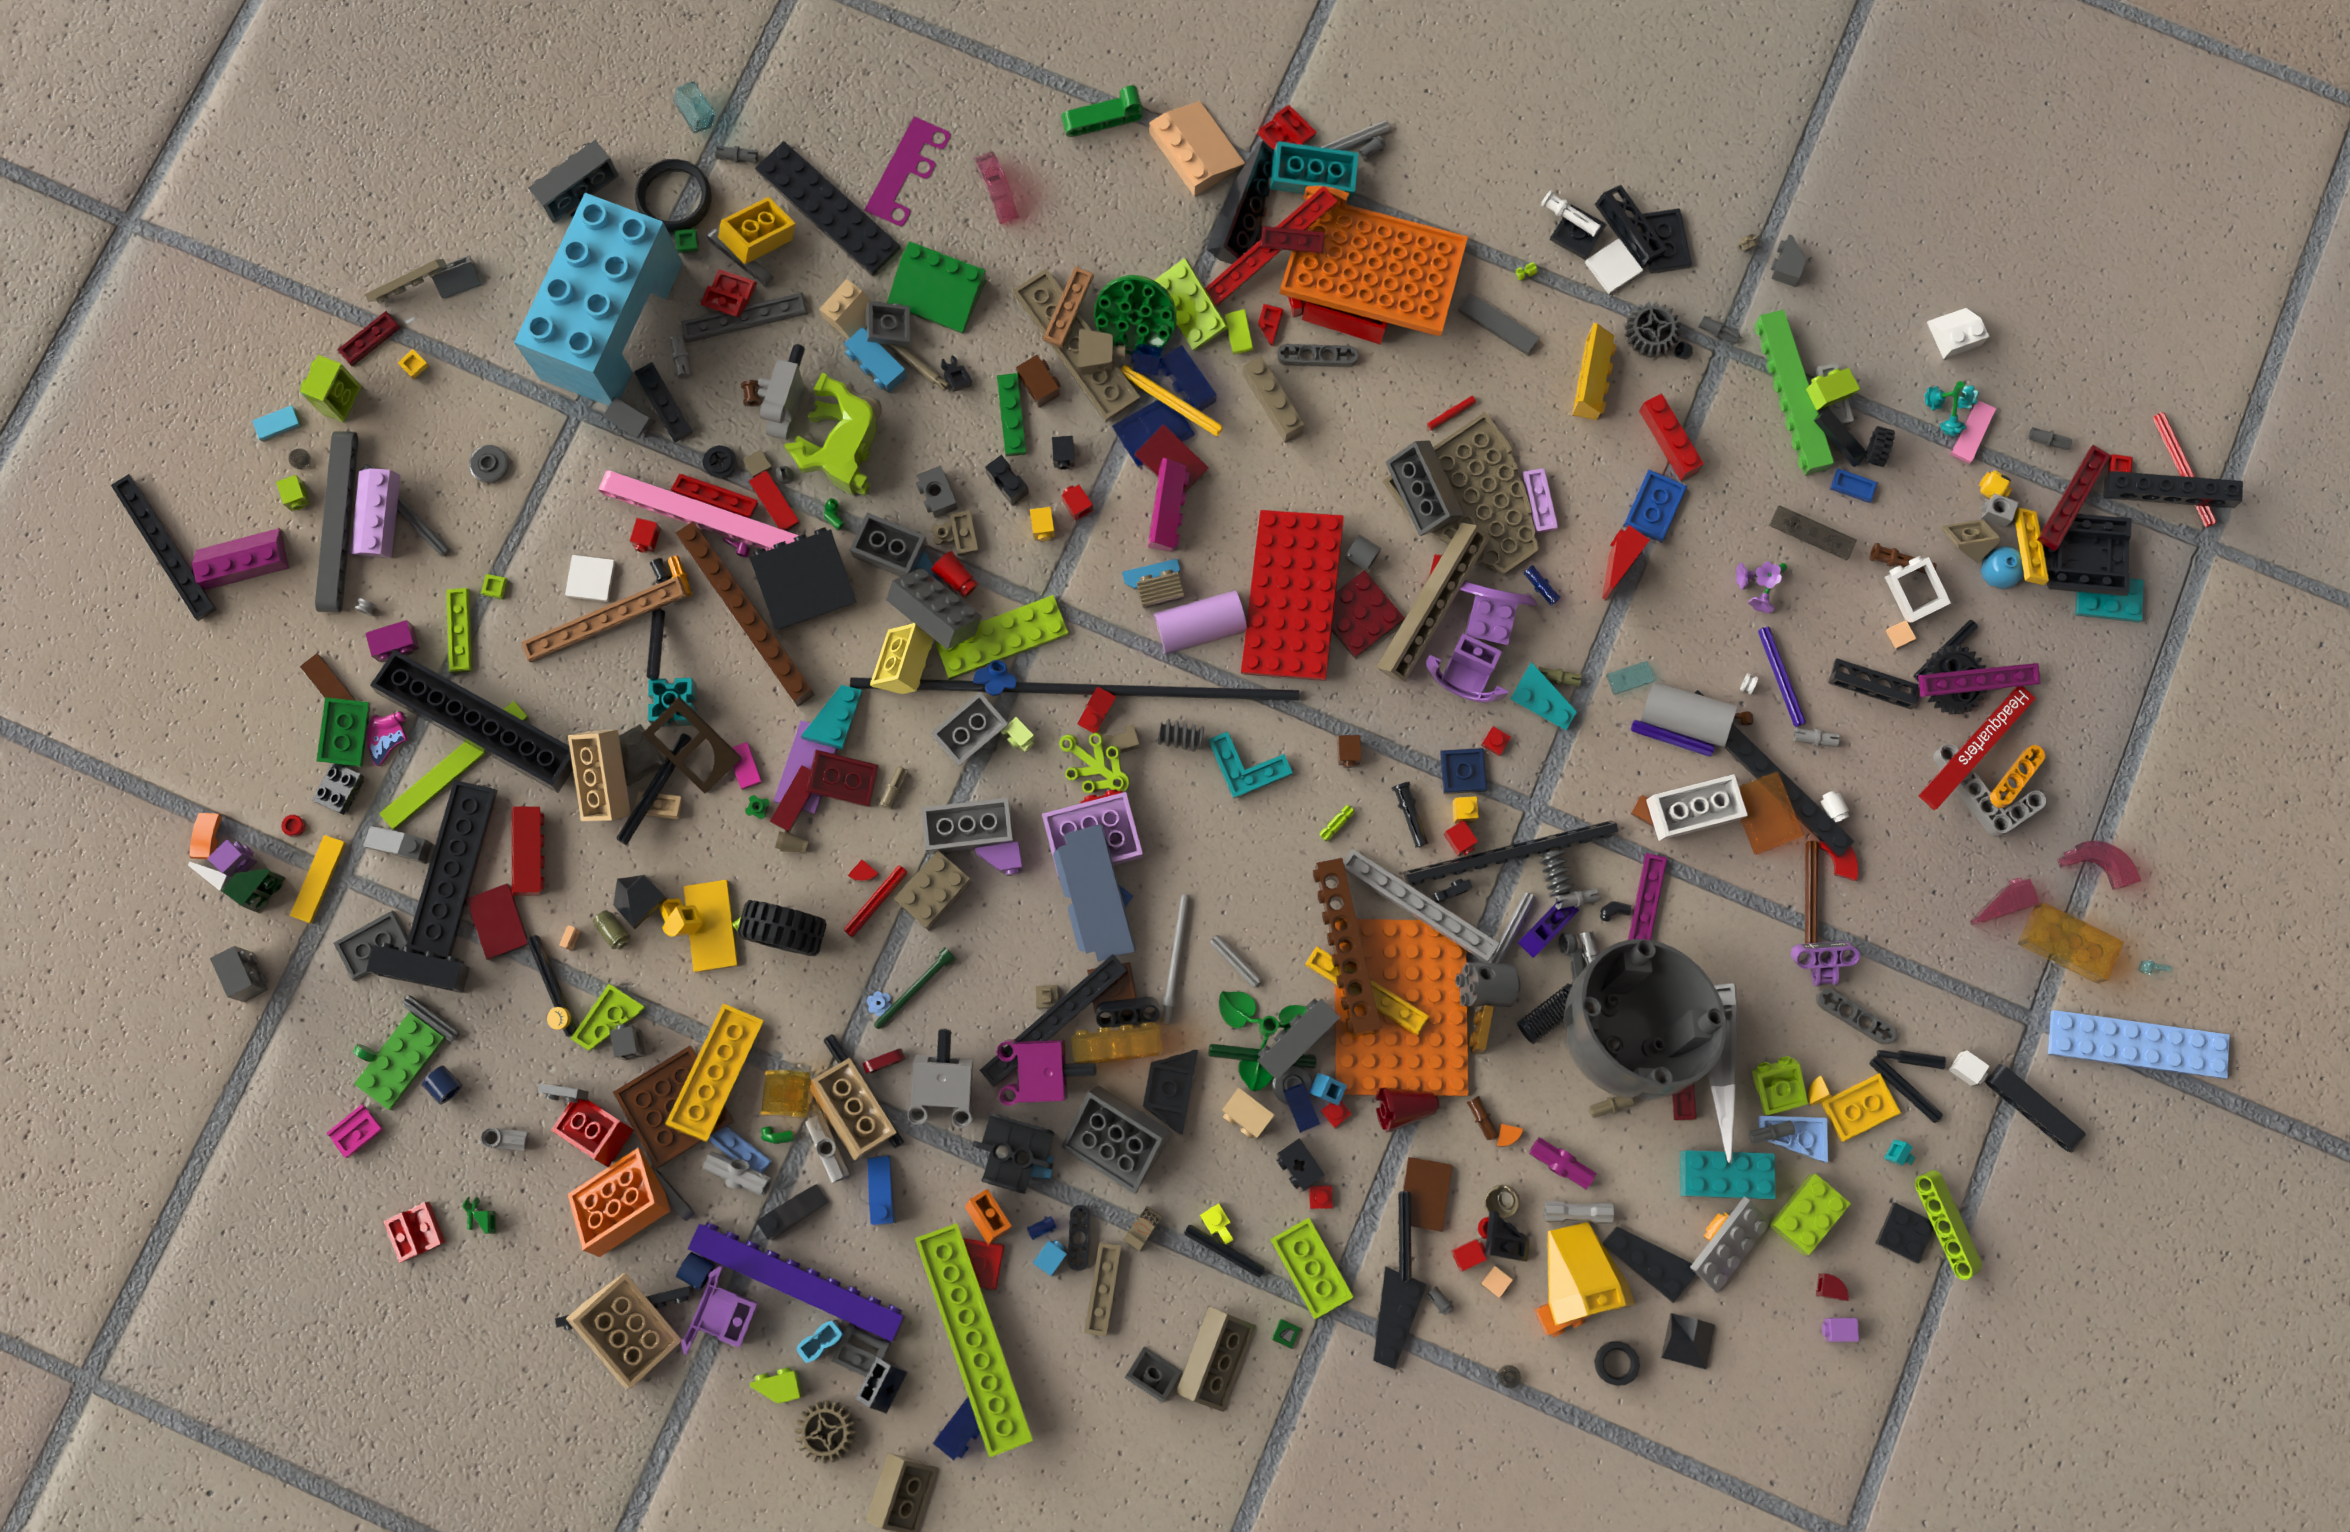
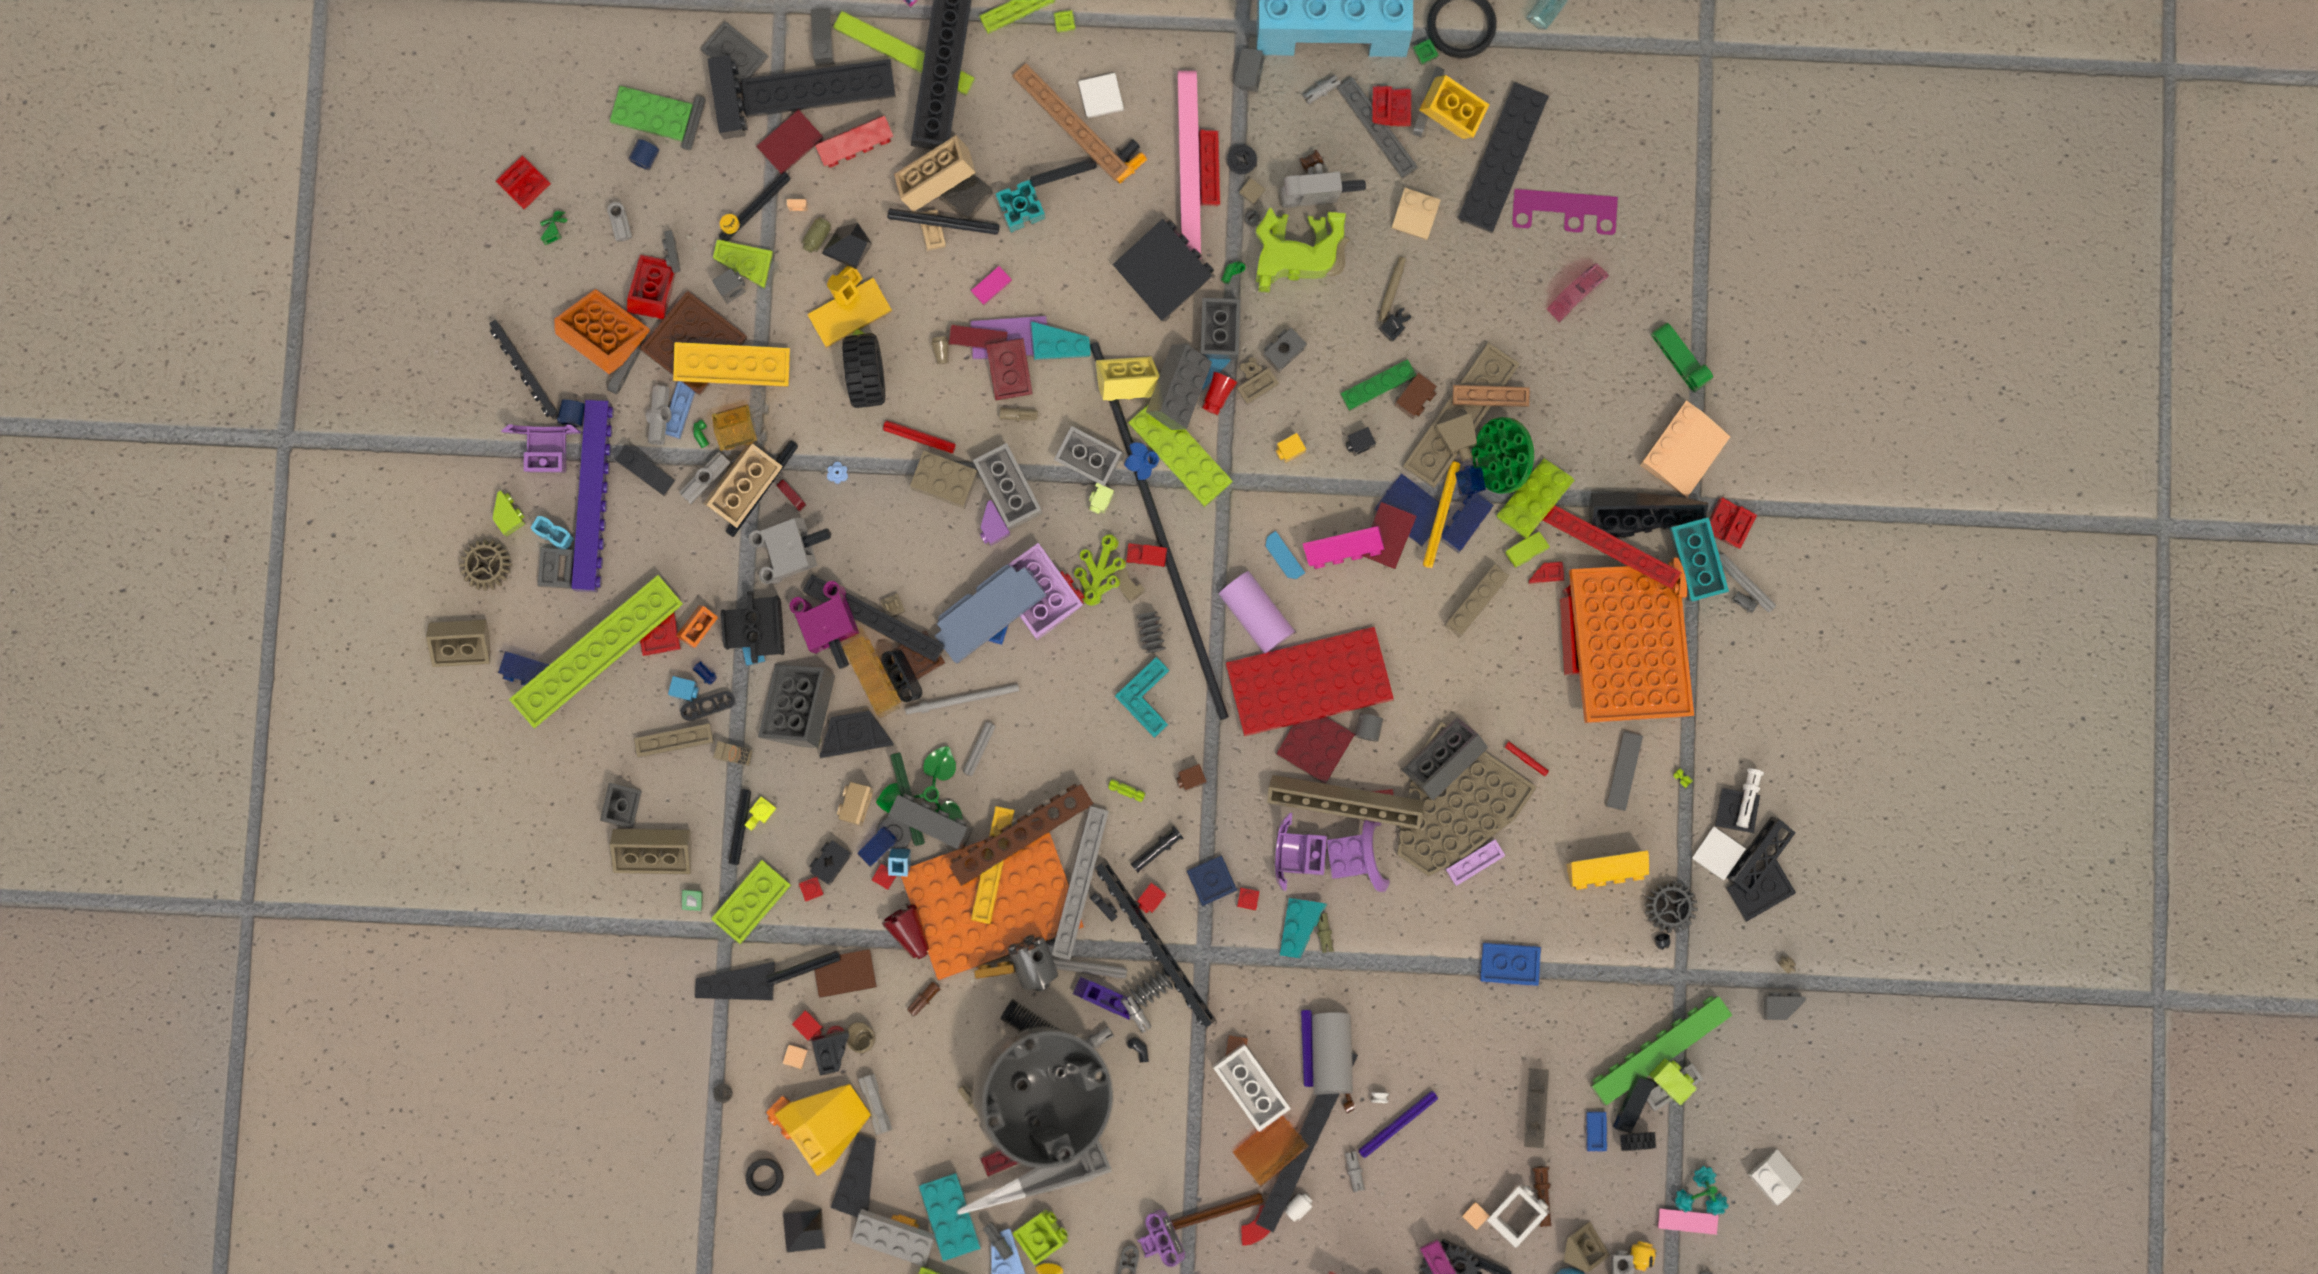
camera: 70 degrees right, 5 degrees up
(354, 1131) = (583, 102): dark pink plate -> none
(364, 1052) = (646, 83): green tile -> none
(624, 1330) = (505, 377): tan slope -> none
(645, 535) = (1153, 125): red brick -> none
(663, 402) = (1275, 91): black plate -> none
(724, 755) = (990, 267): dark brown window -> none
(736, 154) = (1521, 61): dark grey pin -> none
(742, 548) = (1173, 210): magenta hand -> none
(745, 614) = (1118, 234): reddish brown brick -> none
(754, 801) = (960, 315): green plate -> none
(774, 501) = (1224, 218): red tile -> none
(862, 872) = (939, 417): red tile -> none
(874, 361) = (1380, 251): dark azure brick -> none
(880, 1191) = (686, 534): blue slope -> none
(881, 1385) = (535, 594): black brick -> none
(887, 323) = (1415, 250): dark grey plate -> none
(937, 286) = (1466, 278): green slope -> none
(943, 960) = (892, 511): dark green piece -> none
(1014, 487) = (1311, 411): black brick -> none
(1076, 502) = (1321, 469): red brick -> none
(1159, 589) = (1270, 568): dark tan brick -> none
(1292, 239) = (1622, 563): dark red tile -> none
(1317, 351) = (1531, 625): dark grey beam -> none
(1440, 1301) = (762, 1016): dark grey pin -> none
(1465, 809) = (1176, 893): yellow brick -> none
(1508, 1135) = (918, 1025): orange tile -> none
(1541, 585) = (1399, 890): clear blue pin -> none
(1562, 1163) = (910, 1077): magenta piece -> none
(1568, 946) = (1092, 1021): dark grey piece -> none
(1626, 549) = (1452, 950): red slope -> none
(1630, 678) = (1347, 994): clear light blue tile -> none
(1647, 897) = (1154, 1074): magenta tile -> none
(1671, 437) = (1576, 956): red brick -> none
(1719, 329) = (1694, 966): dark grey axle -> none
(1768, 576) = (1476, 1079): medium lavender plant -> none
(1872, 688) = (1415, 1205): black fence -> none

